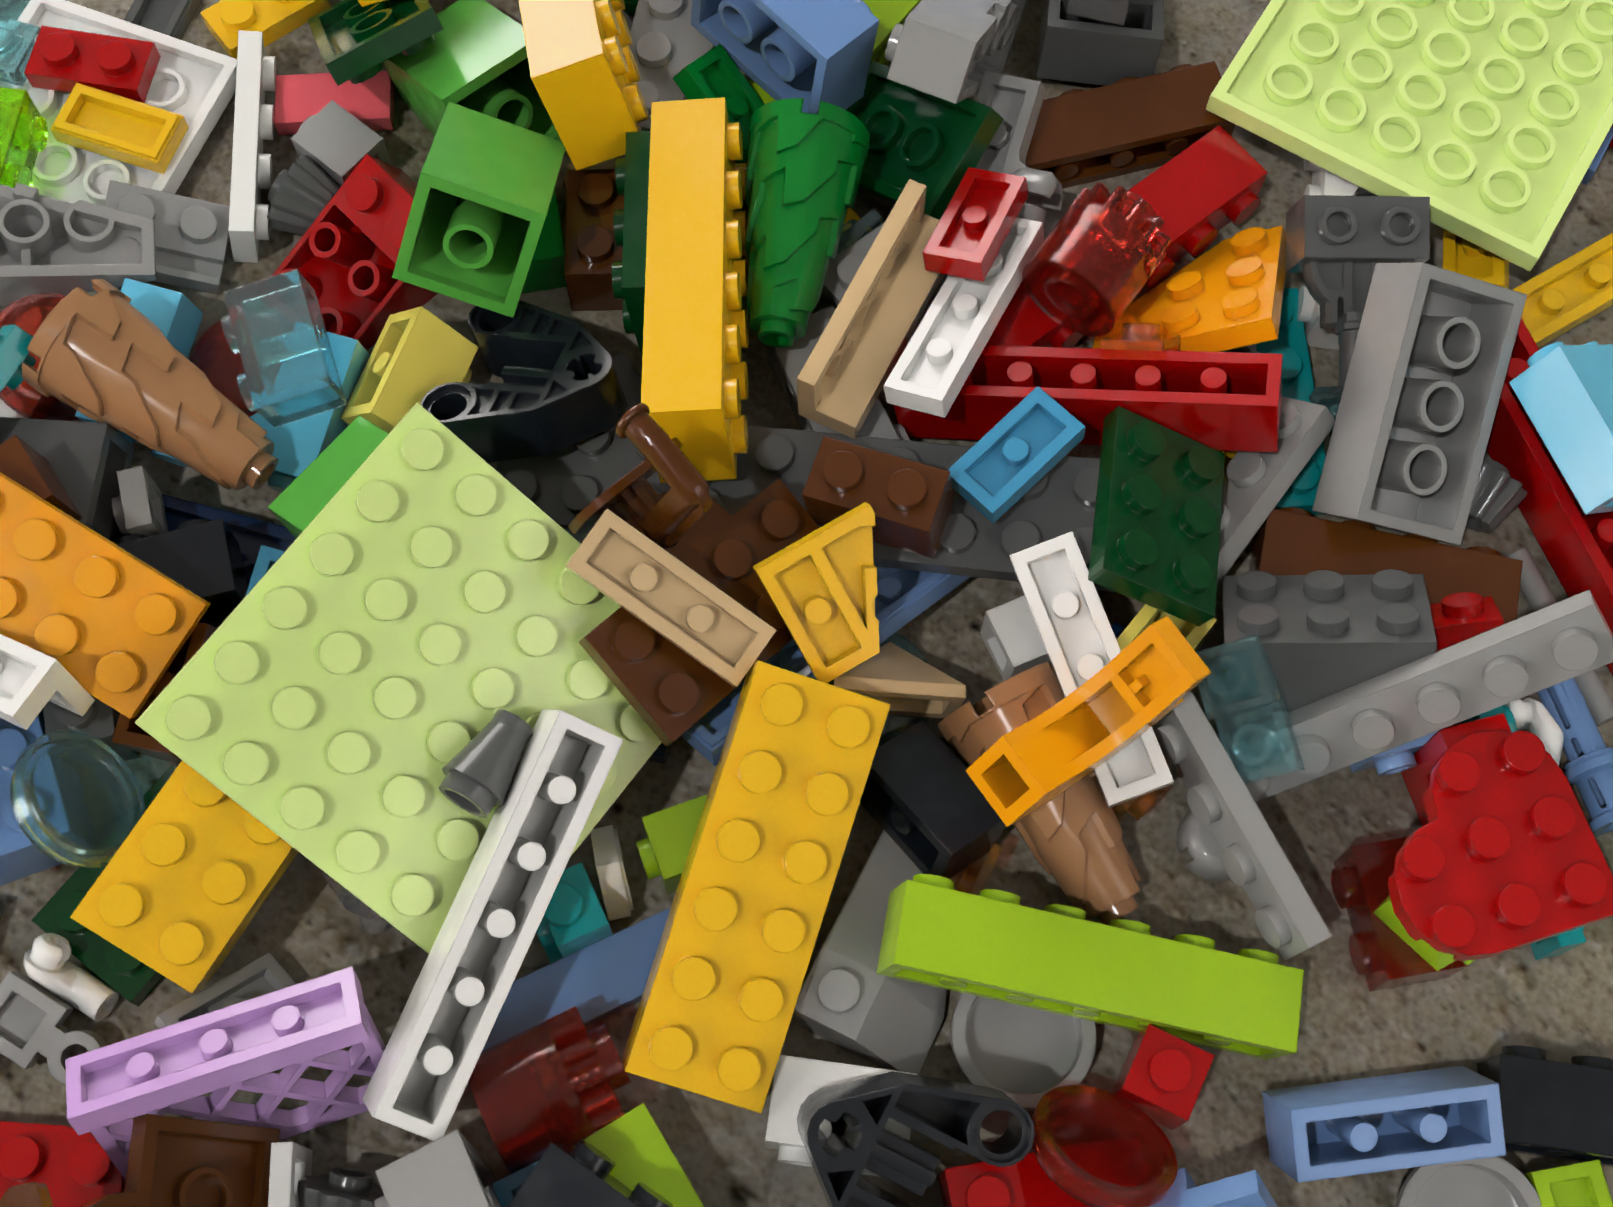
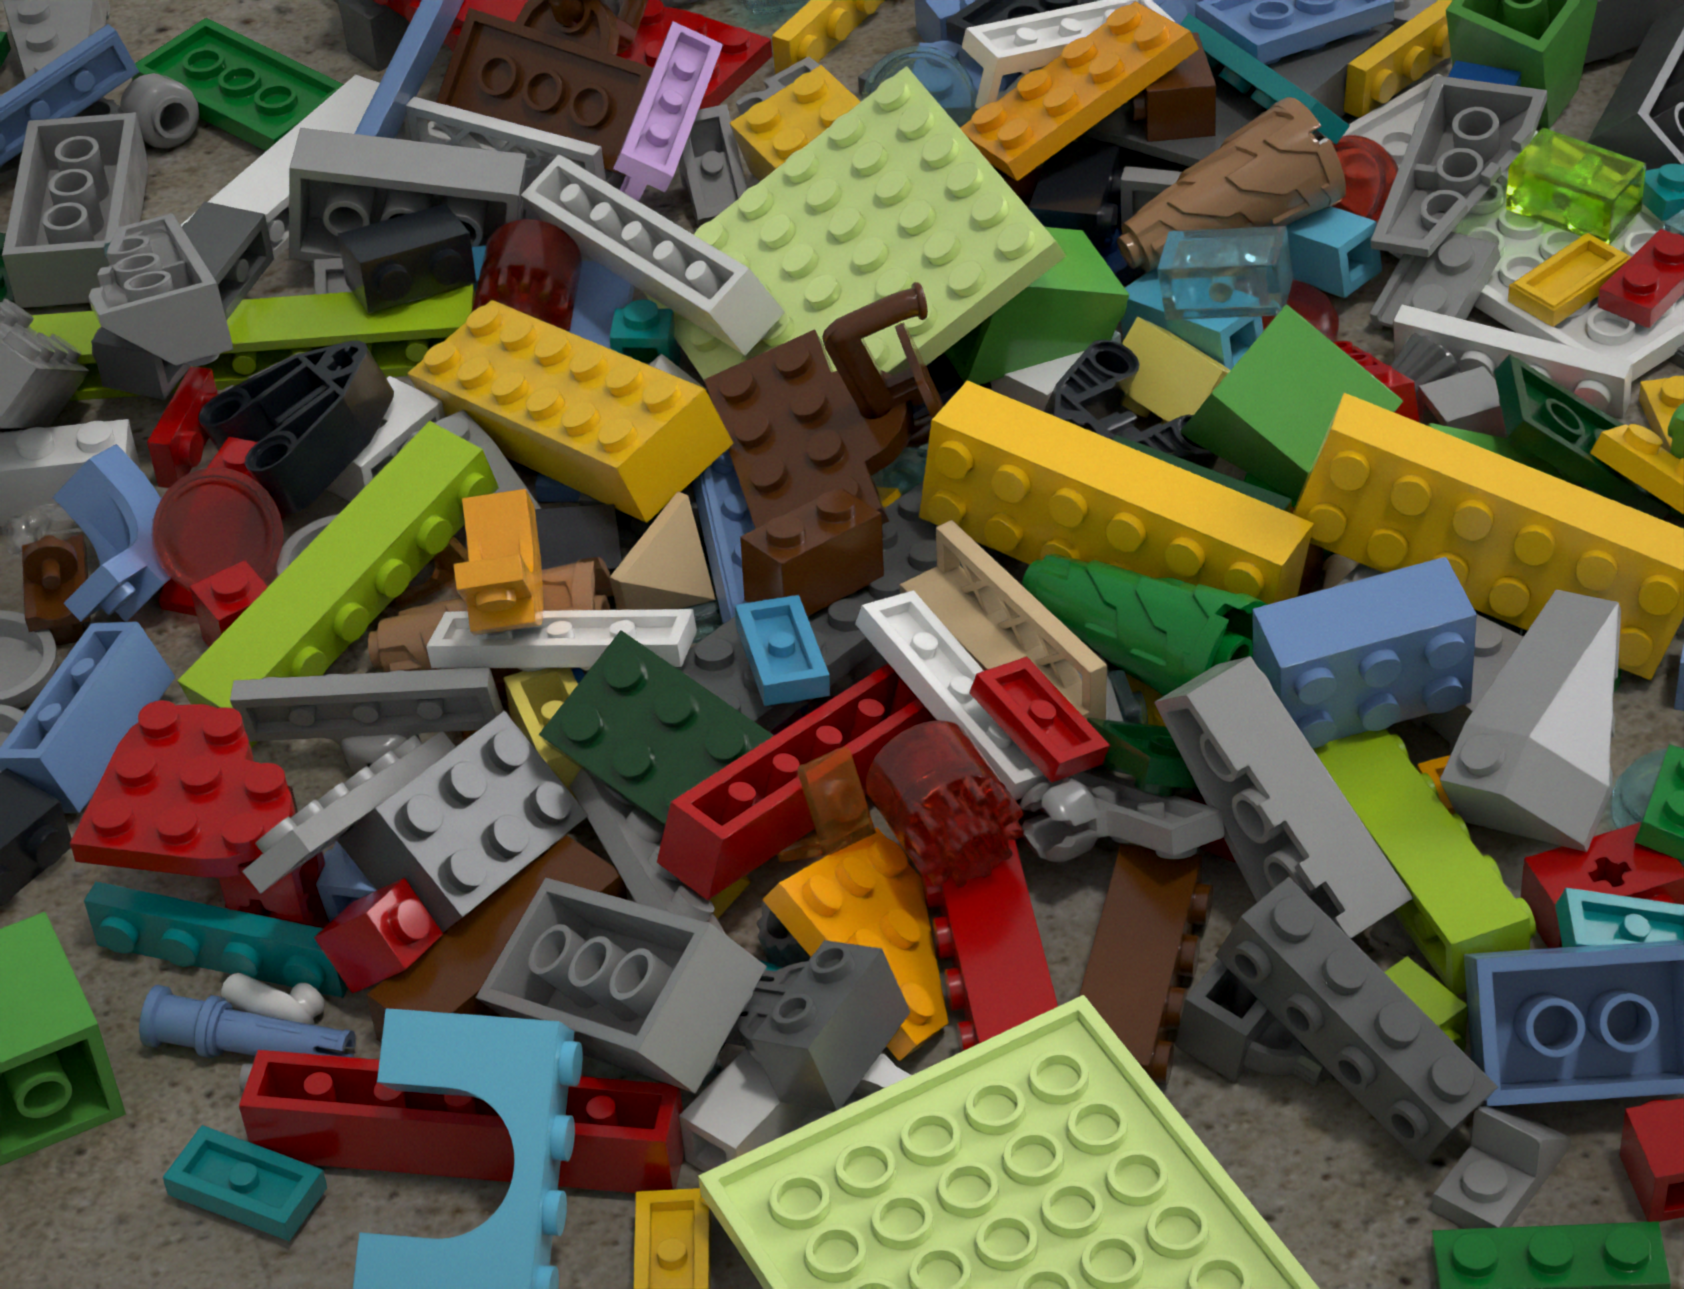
camera: 125 degrees right, 25 degrees down
(485, 767) = (758, 250): dark grey cone -> none
(670, 598) = (784, 374): tan plate -> none
(828, 593) = (745, 483): yellow wing -> none
(1249, 710) = (441, 718): clear light blue slope -> none

